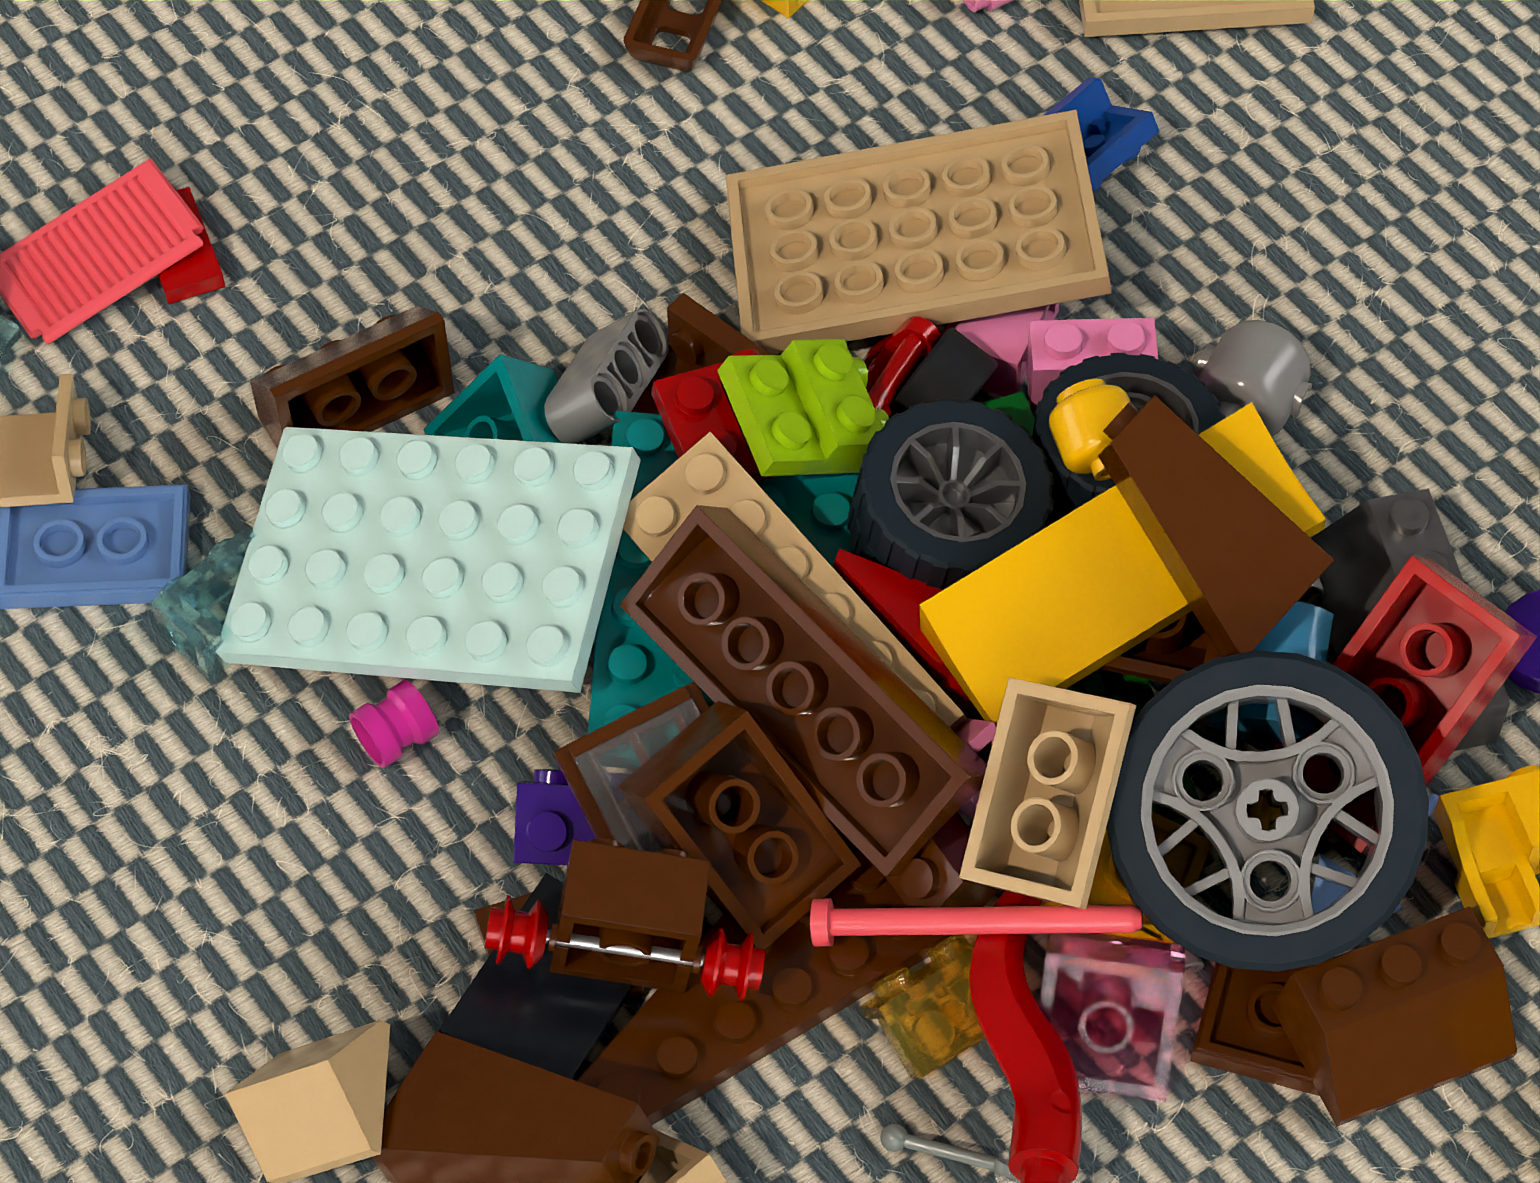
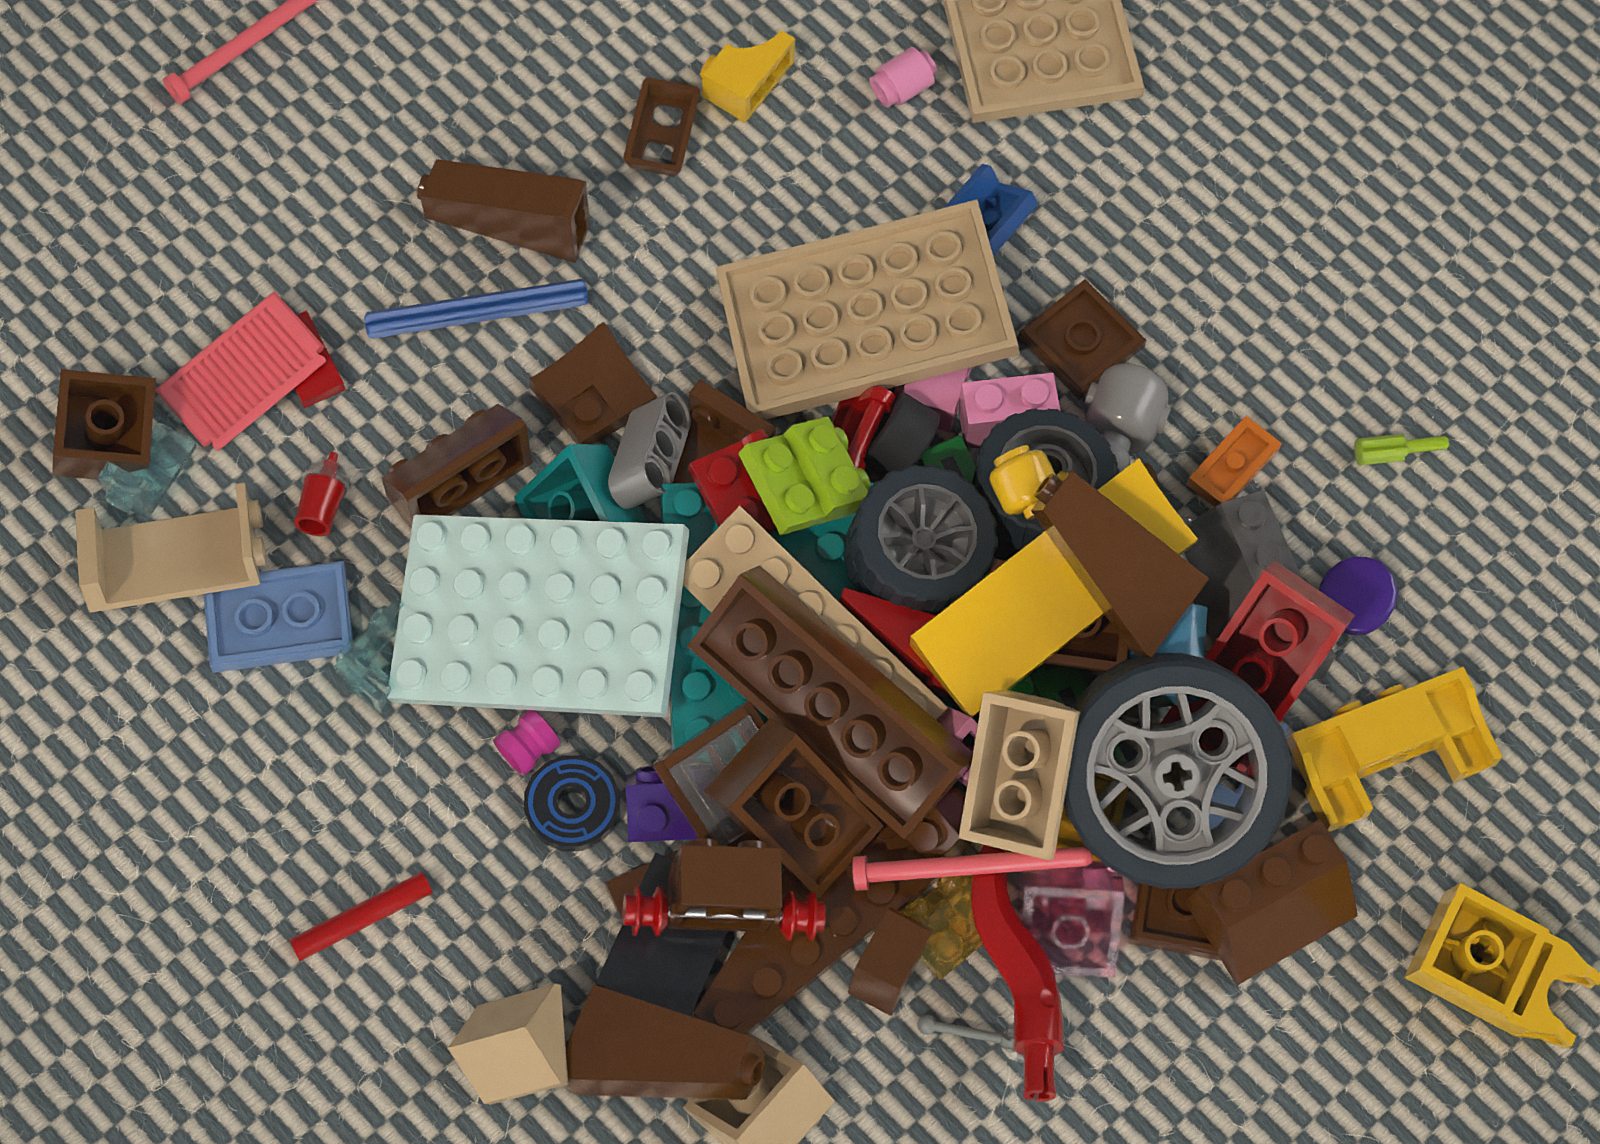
camera: 10 degrees left, 10 degrees up
(138, 924) = (360, 916): none -> red piece
(172, 402) = (321, 496): none -> red piece
(408, 202) = (476, 308): none -> blue axle
(440, 775) = (567, 776): none -> black tile
(469, 82) = (509, 206): none -> reddish brown slope
(543, 303) = (592, 388): none -> reddish brown plate
(847, 1042) = (889, 961): none -> reddish brown slope
(1200, 295) = (1081, 338): none -> reddish brown tile
(1394, 459) = (1234, 463): none -> orange plate

